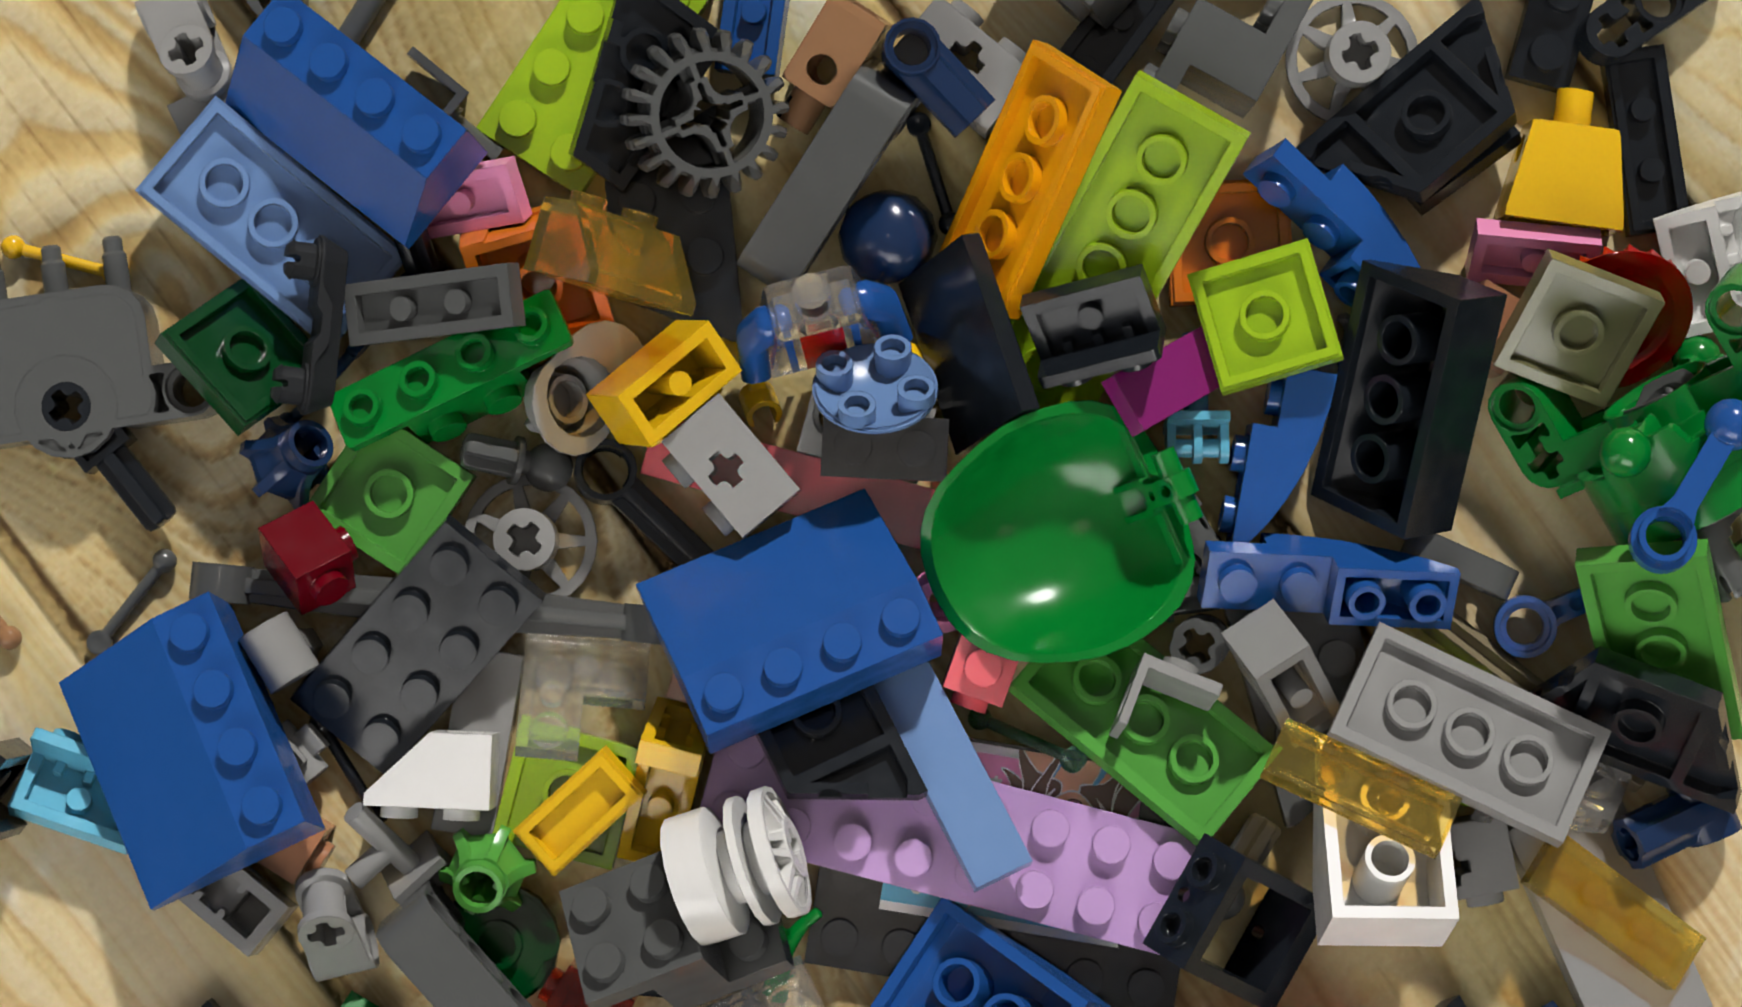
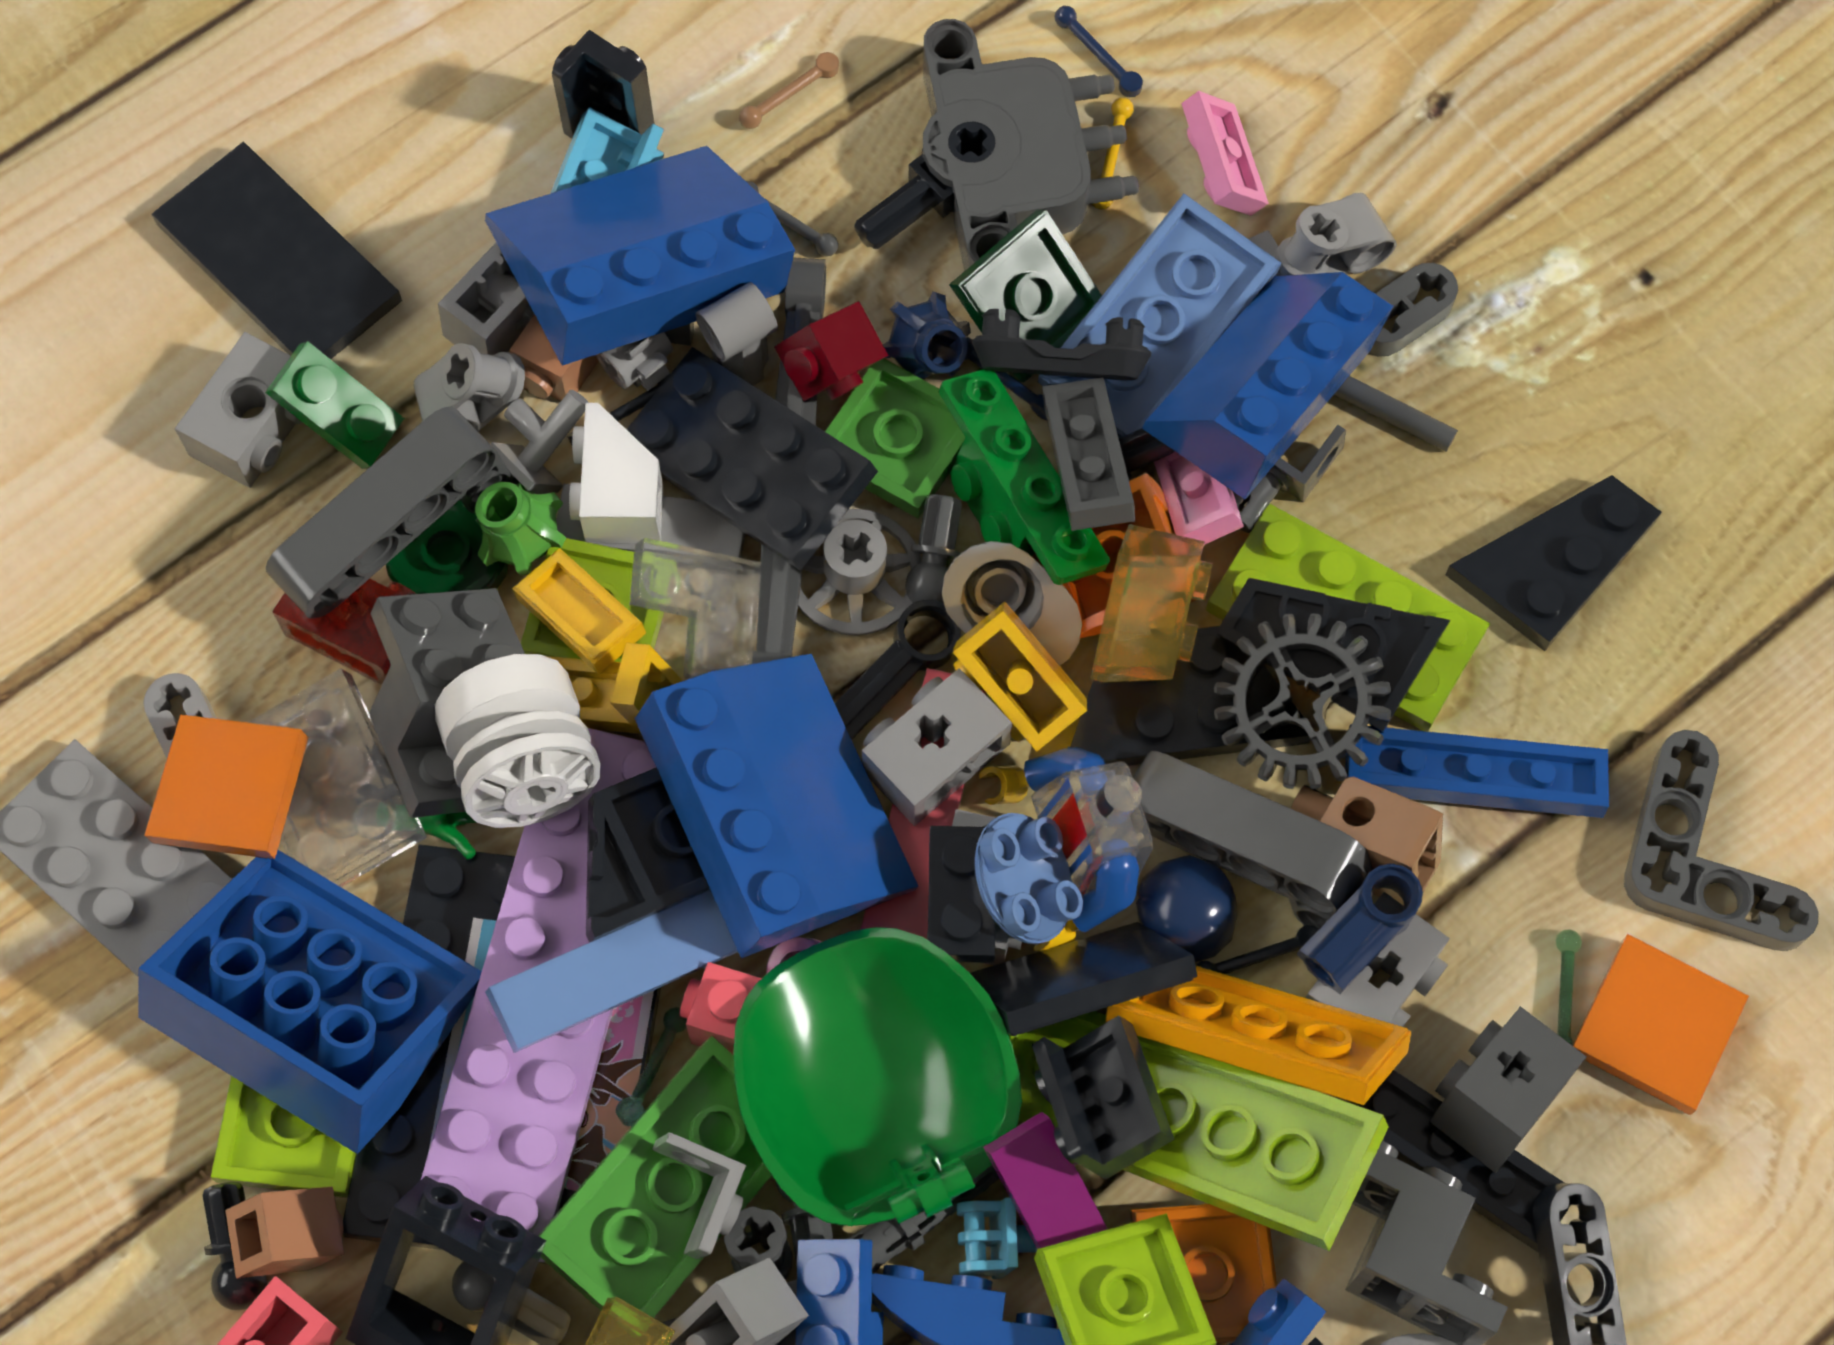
camera: 85 degrees right, 20 degrees down
(77, 144) = (1224, 153): none -> bright pink plate

